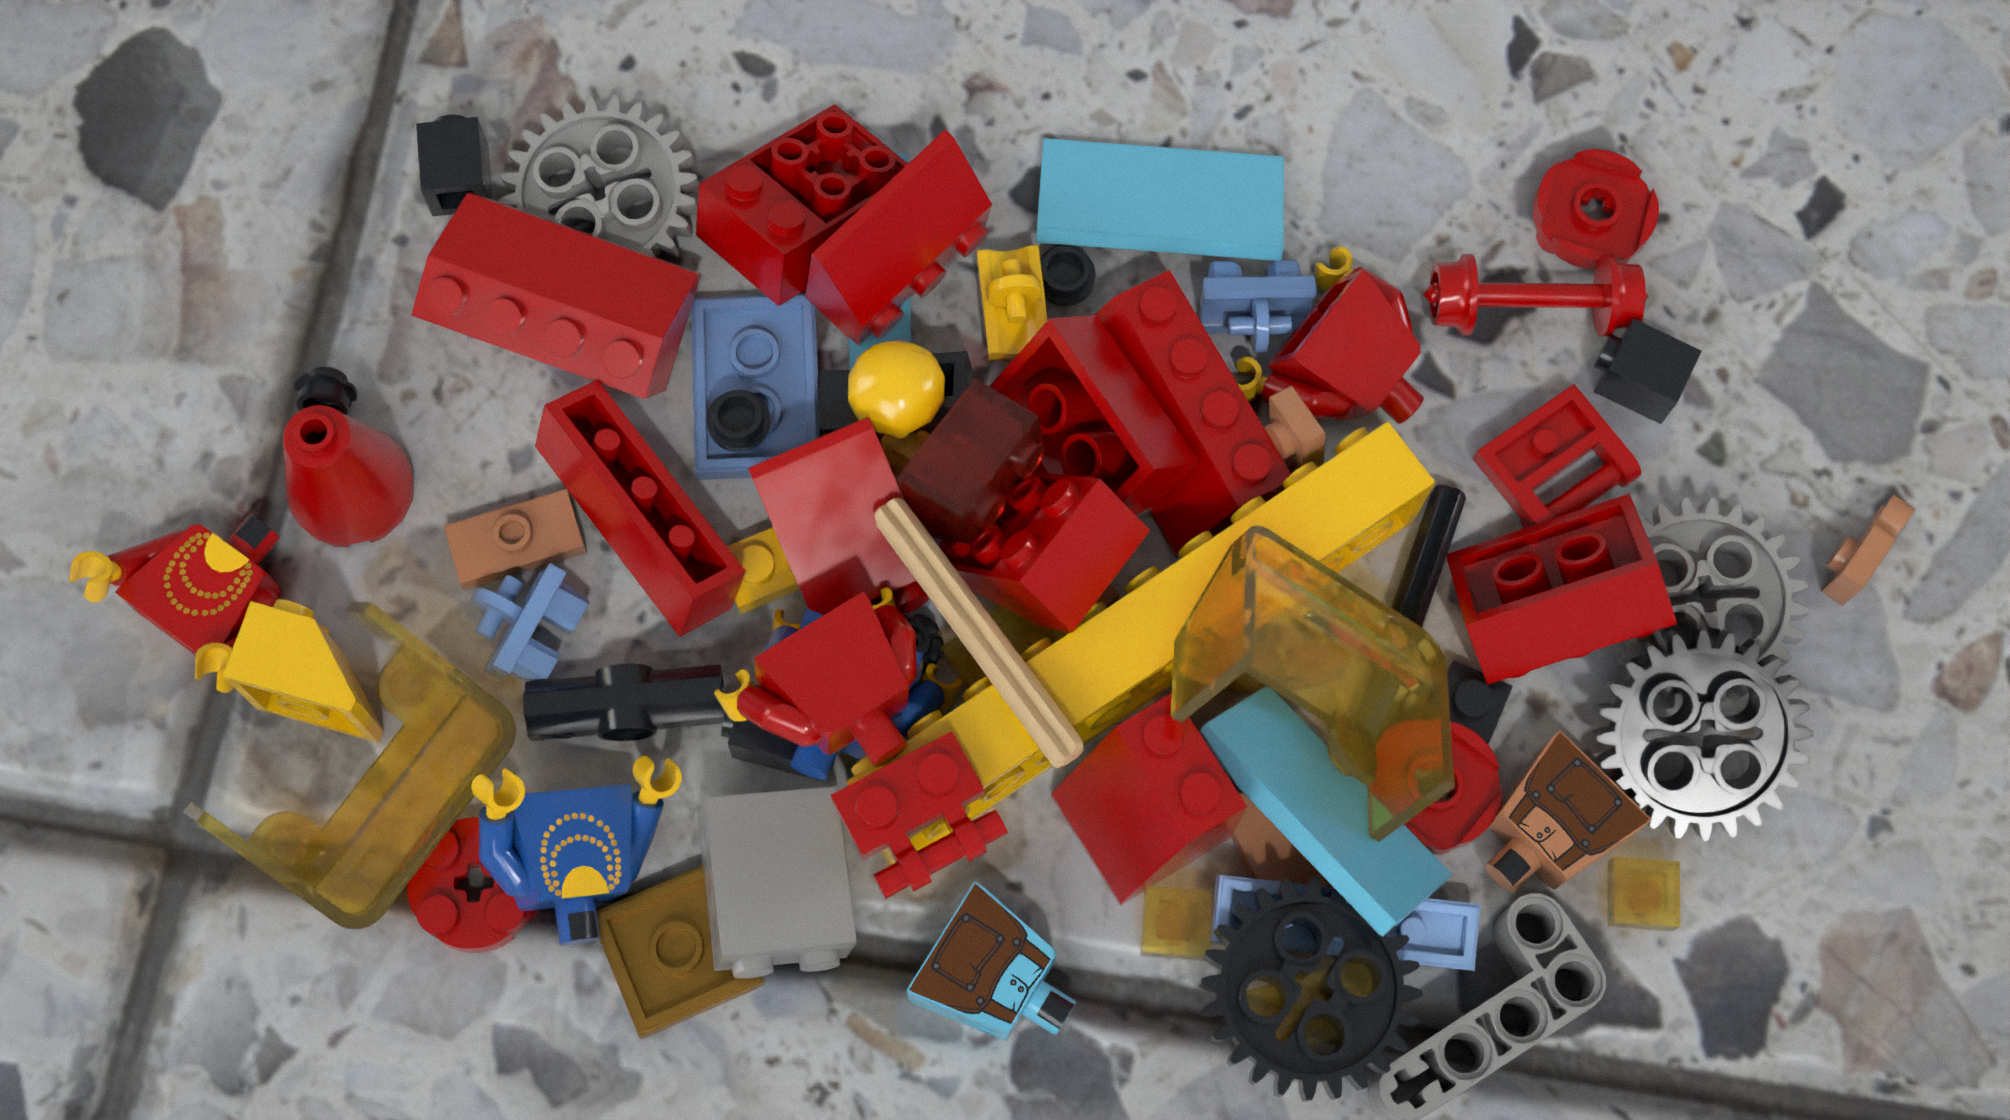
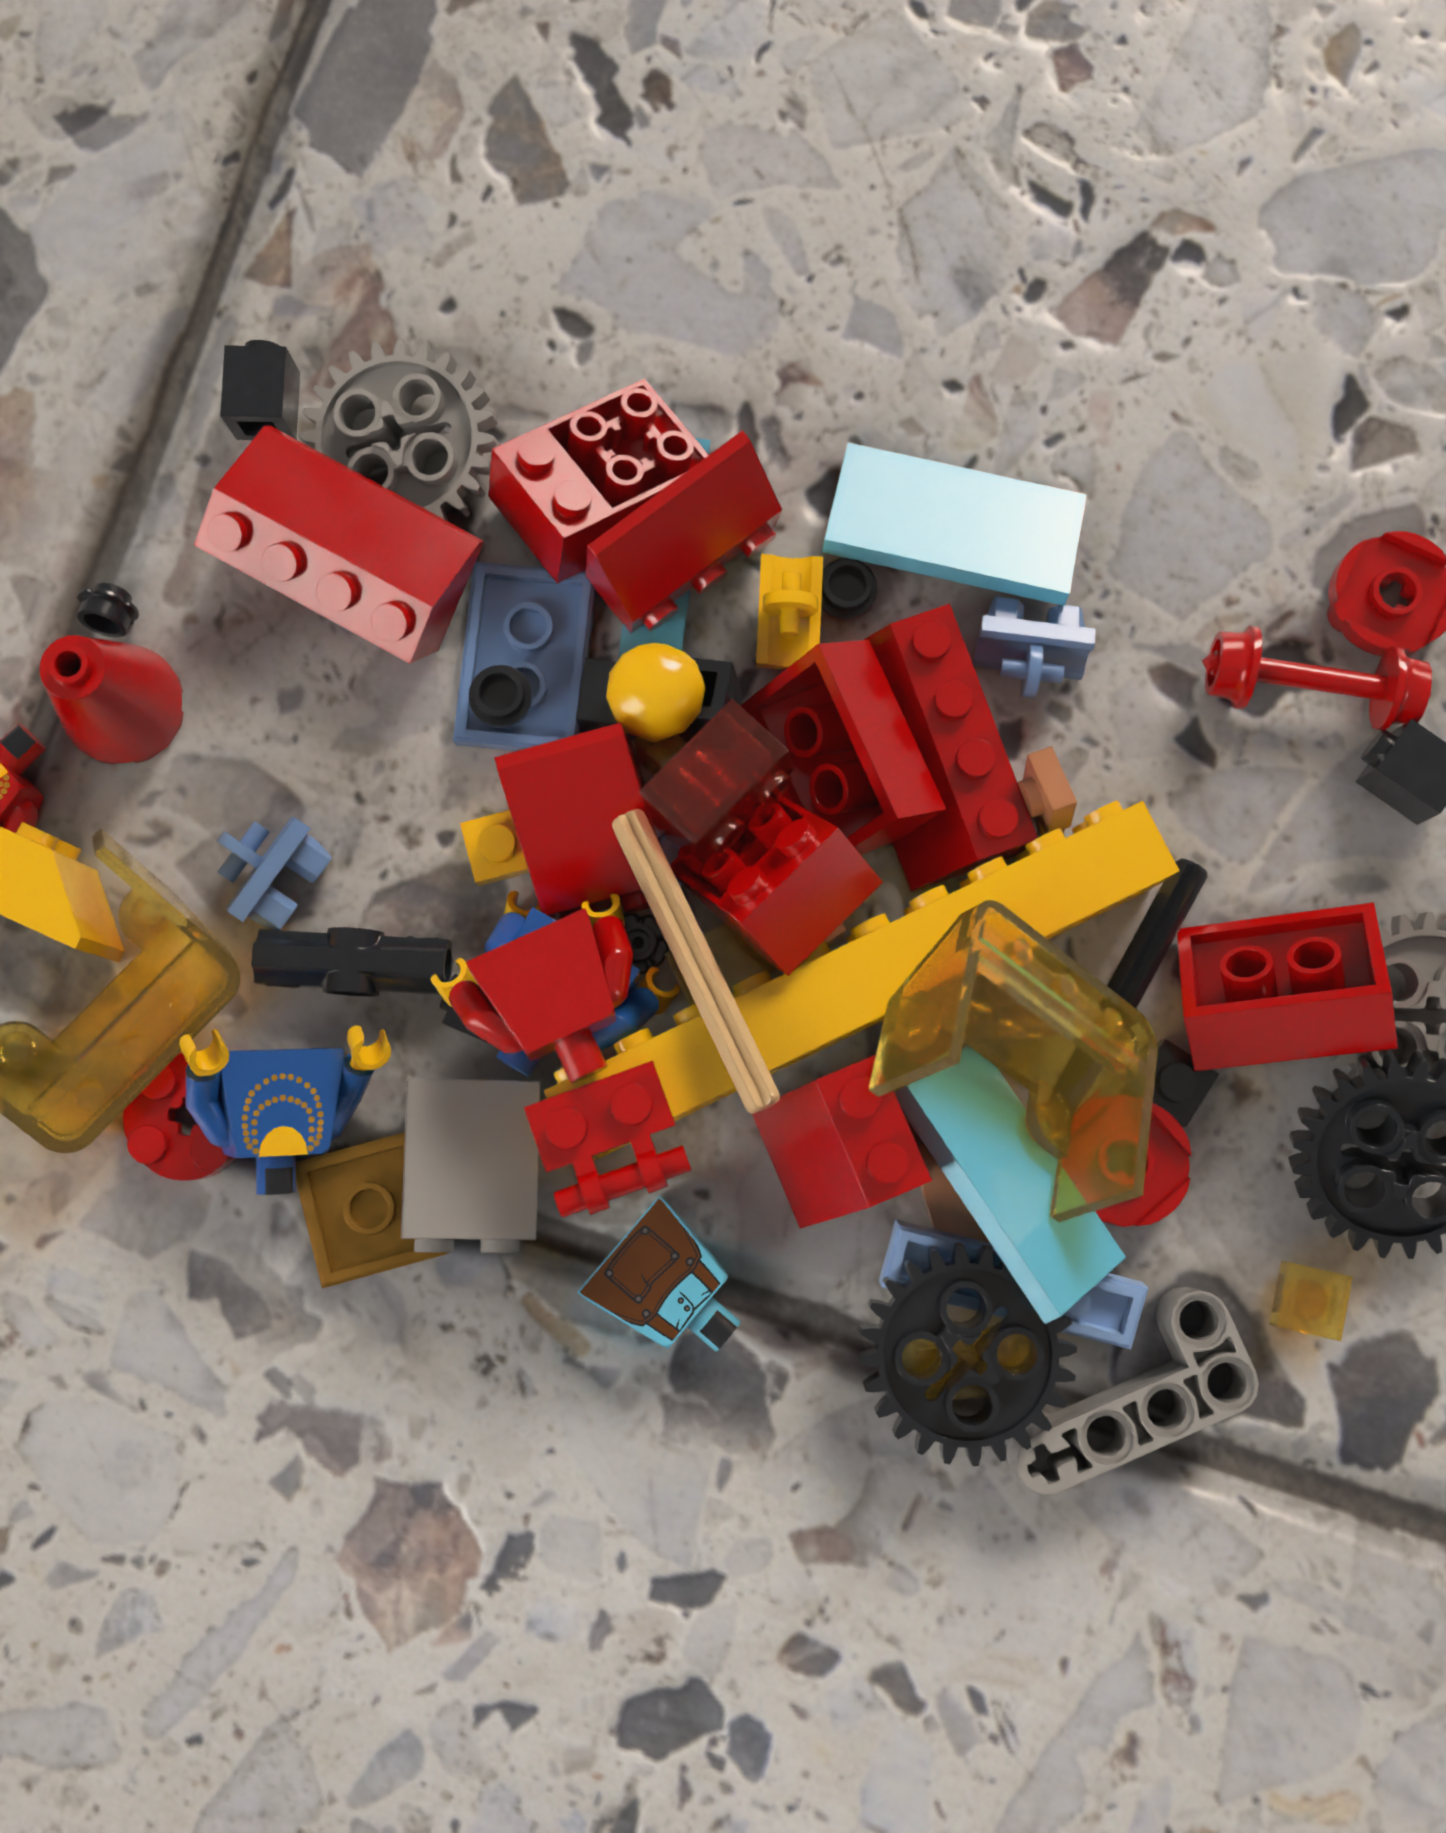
camera: 15 degrees right, 10 degrees up
(514, 539) = (271, 781): nougat plate -> none
(639, 507) = (390, 771): red brick -> none
(1176, 923) = (849, 1259): clear yellow plate -> none
(1346, 350) = (1114, 709): red torso -> none
(1546, 446) = (1298, 834): red plate -> none
(1560, 818) = (1243, 1215): torso -> none

